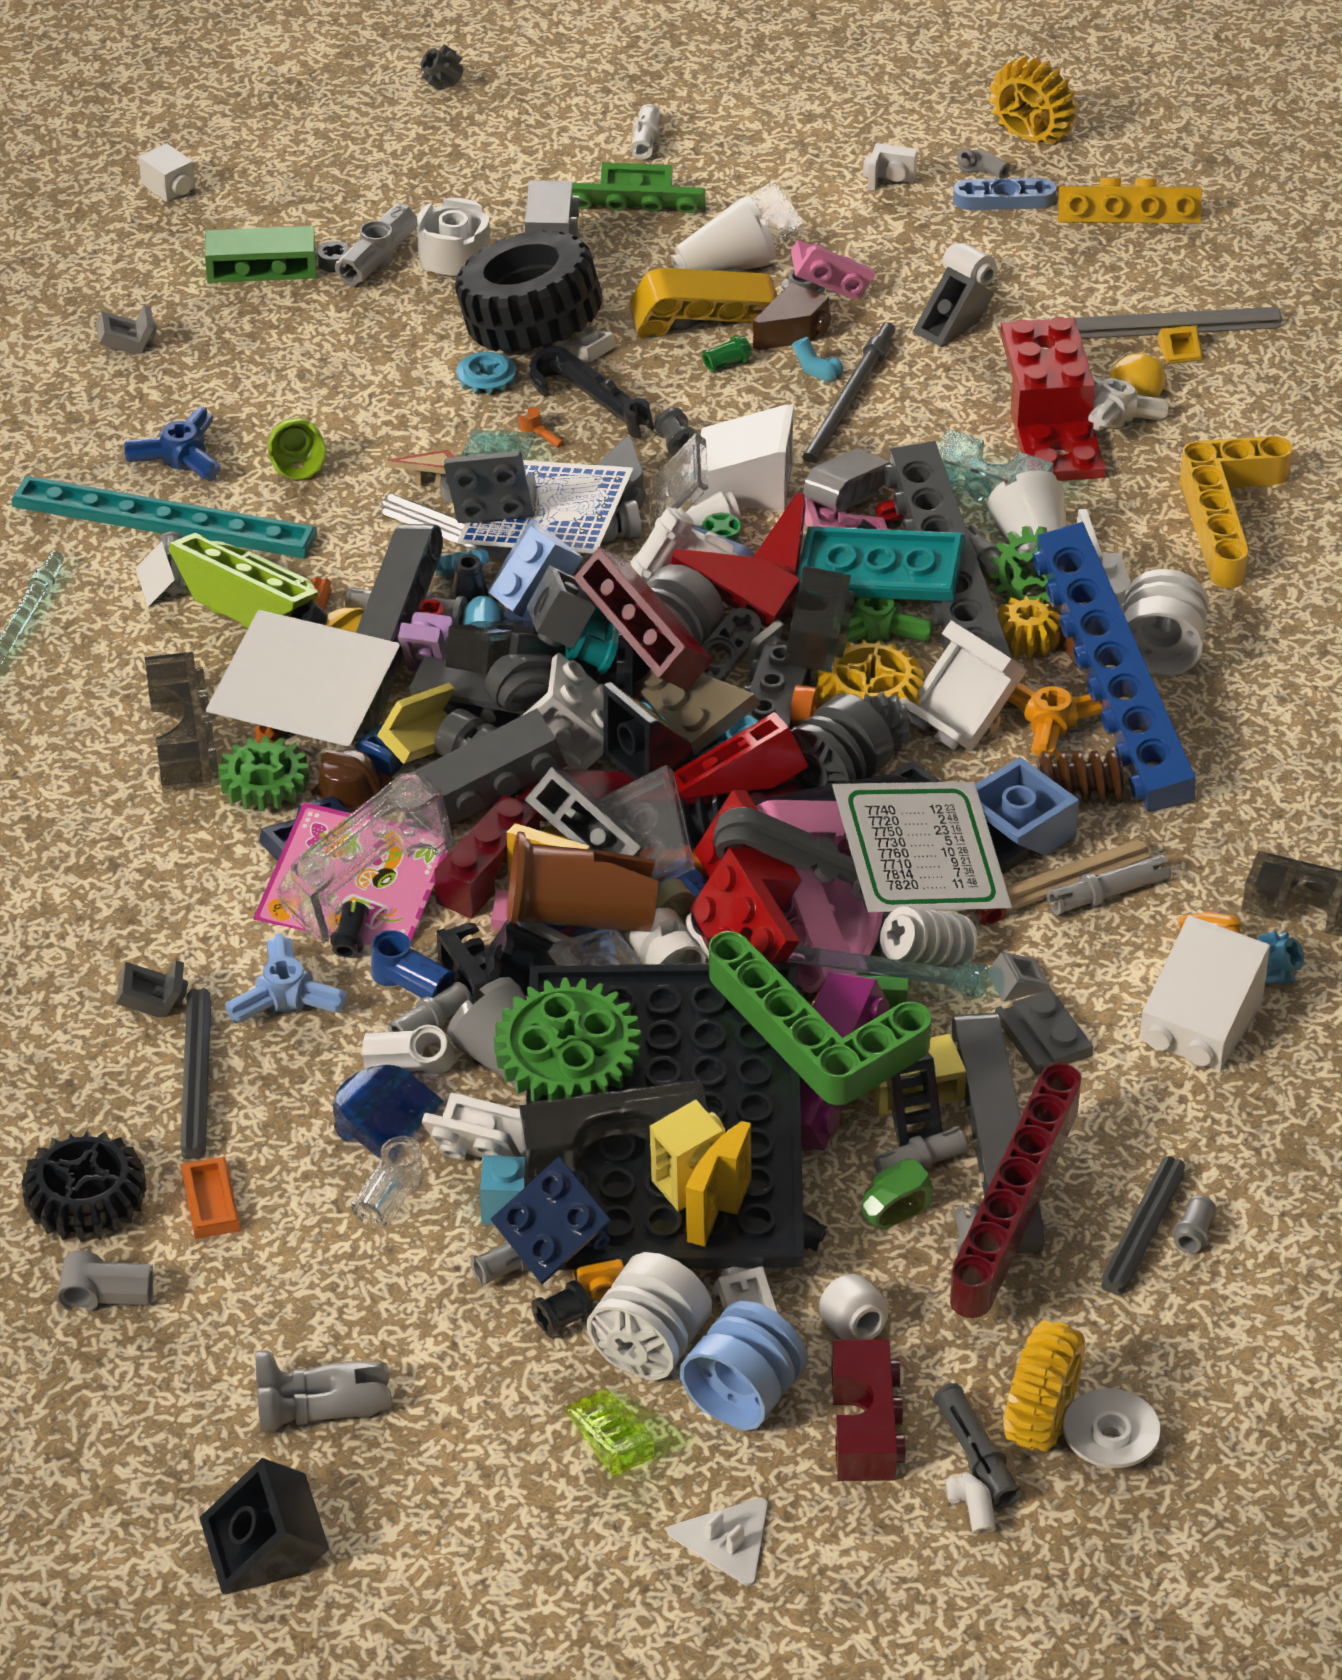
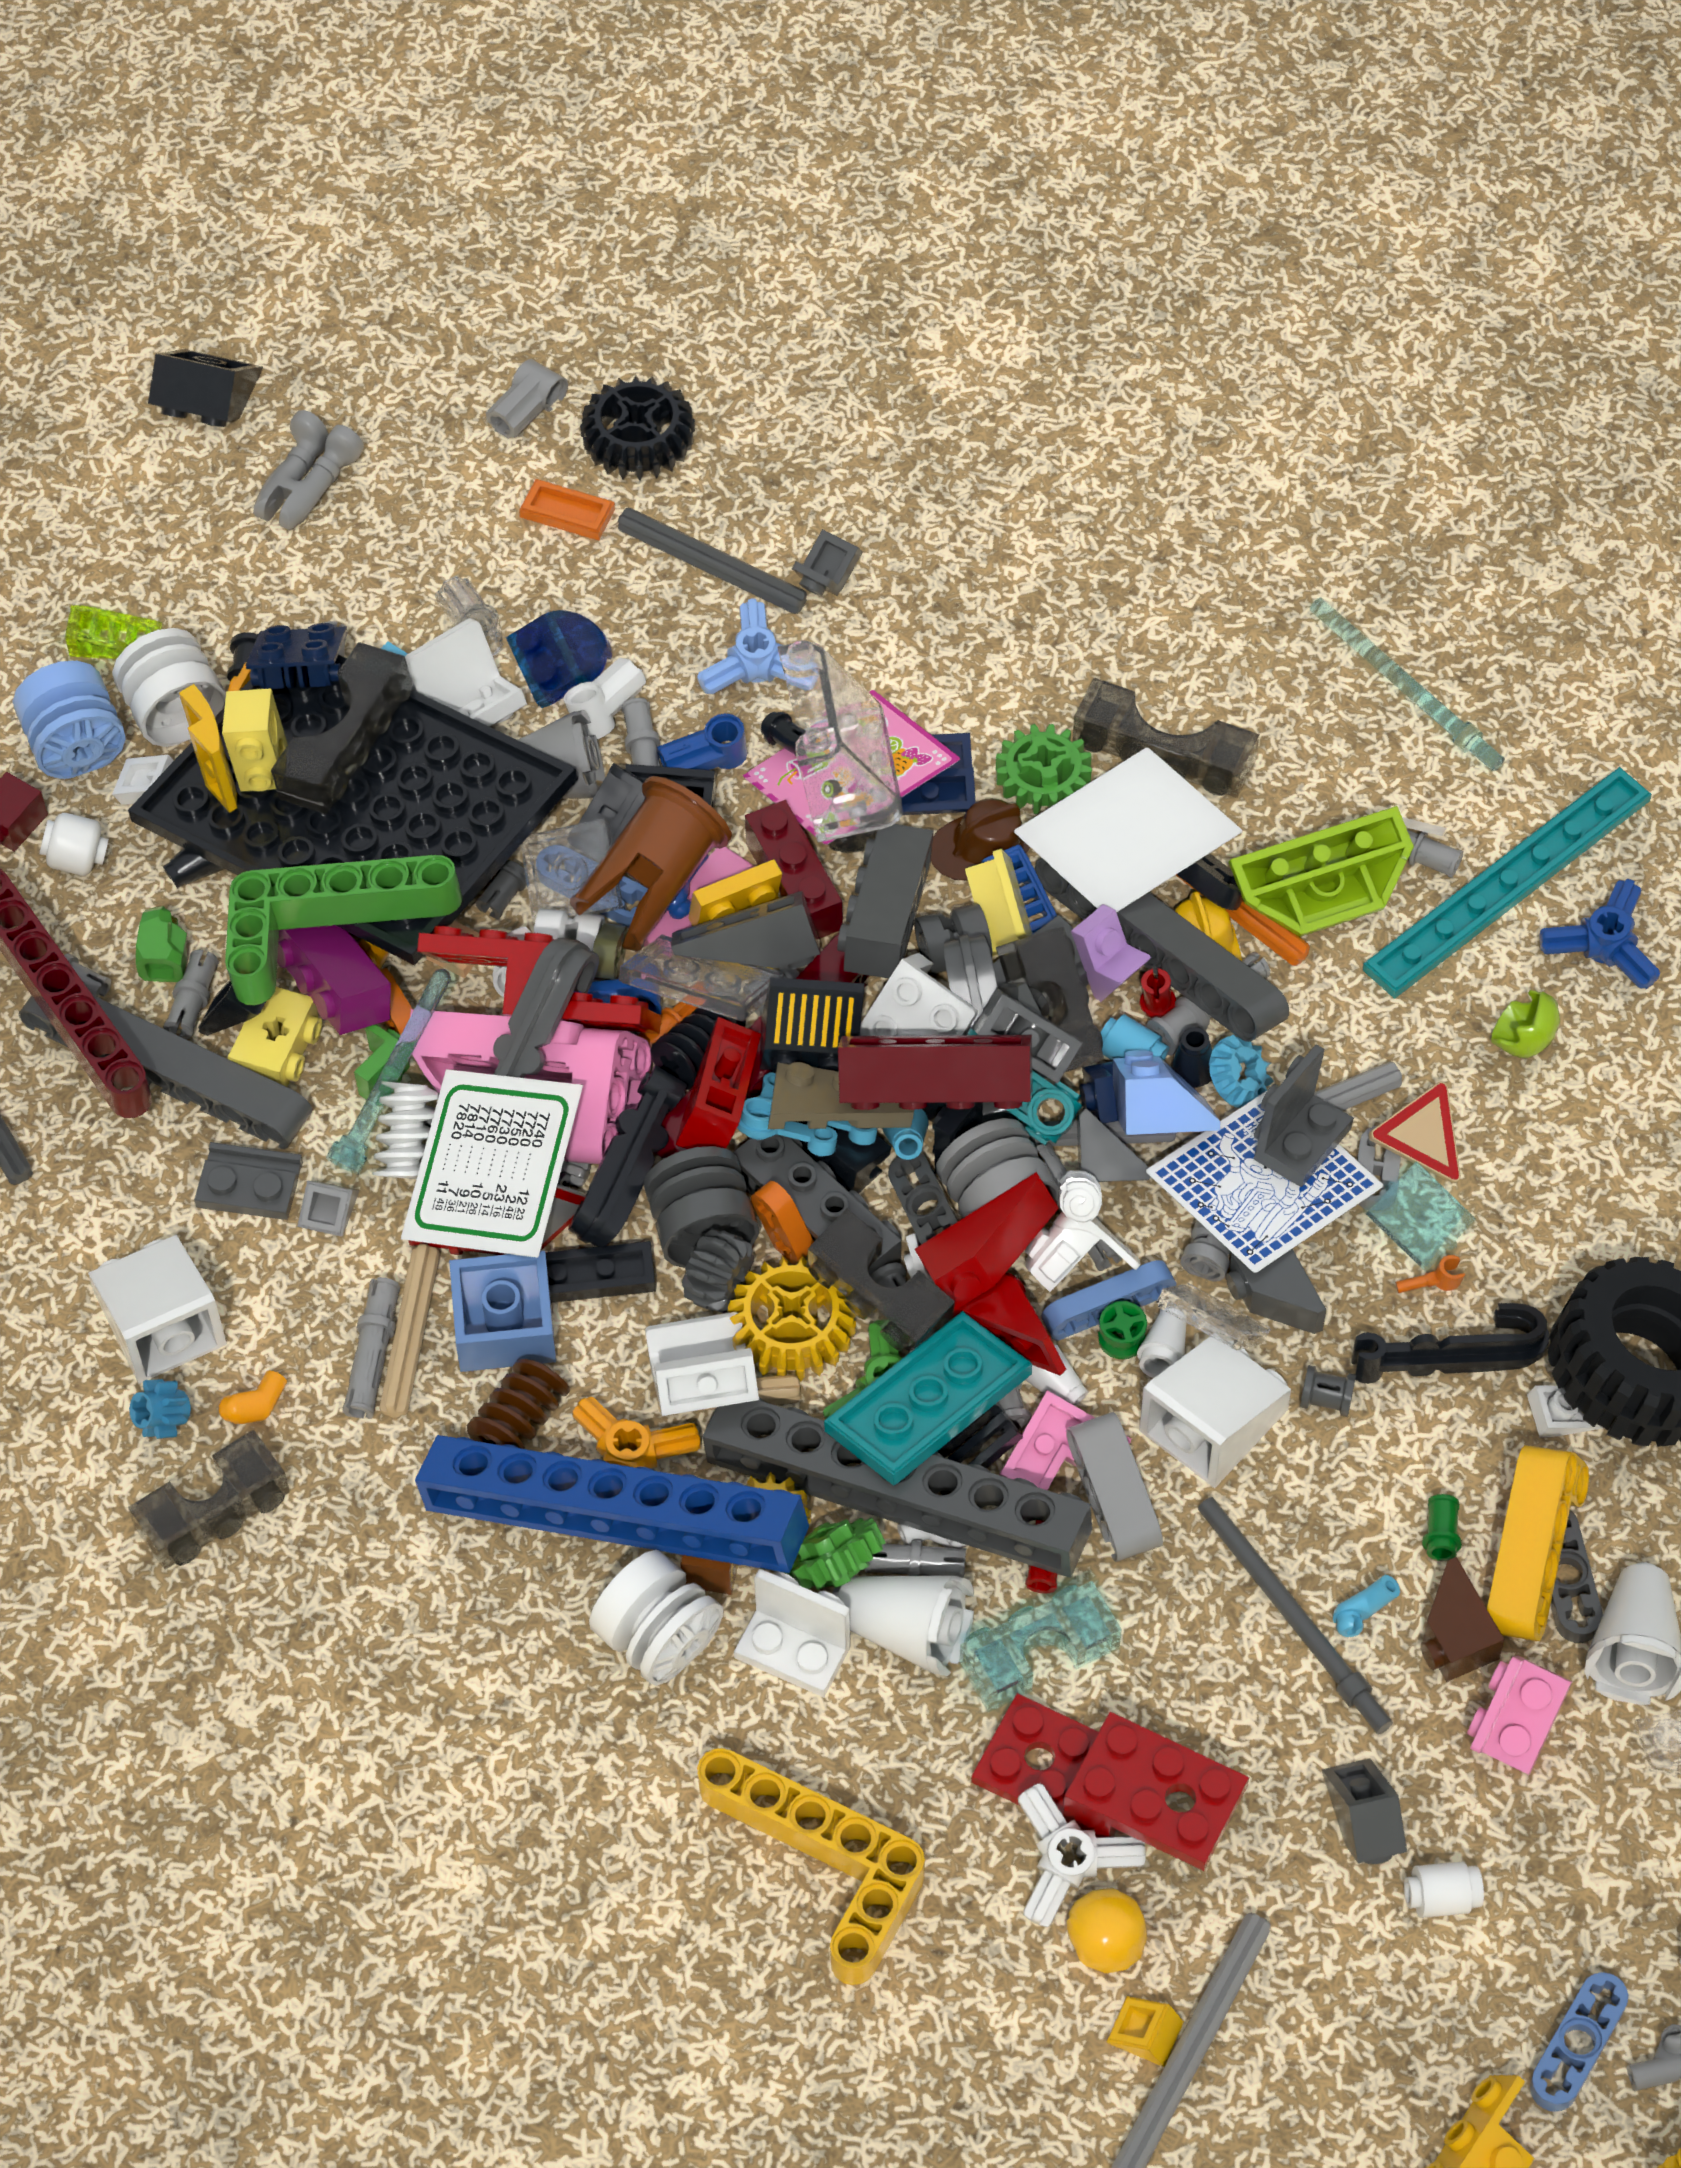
camera: 125 degrees right, 15 degrees up
(486, 362) = (1548, 1267): medium azure gear -> none
(567, 1041) = (456, 737): bright green gear -> none

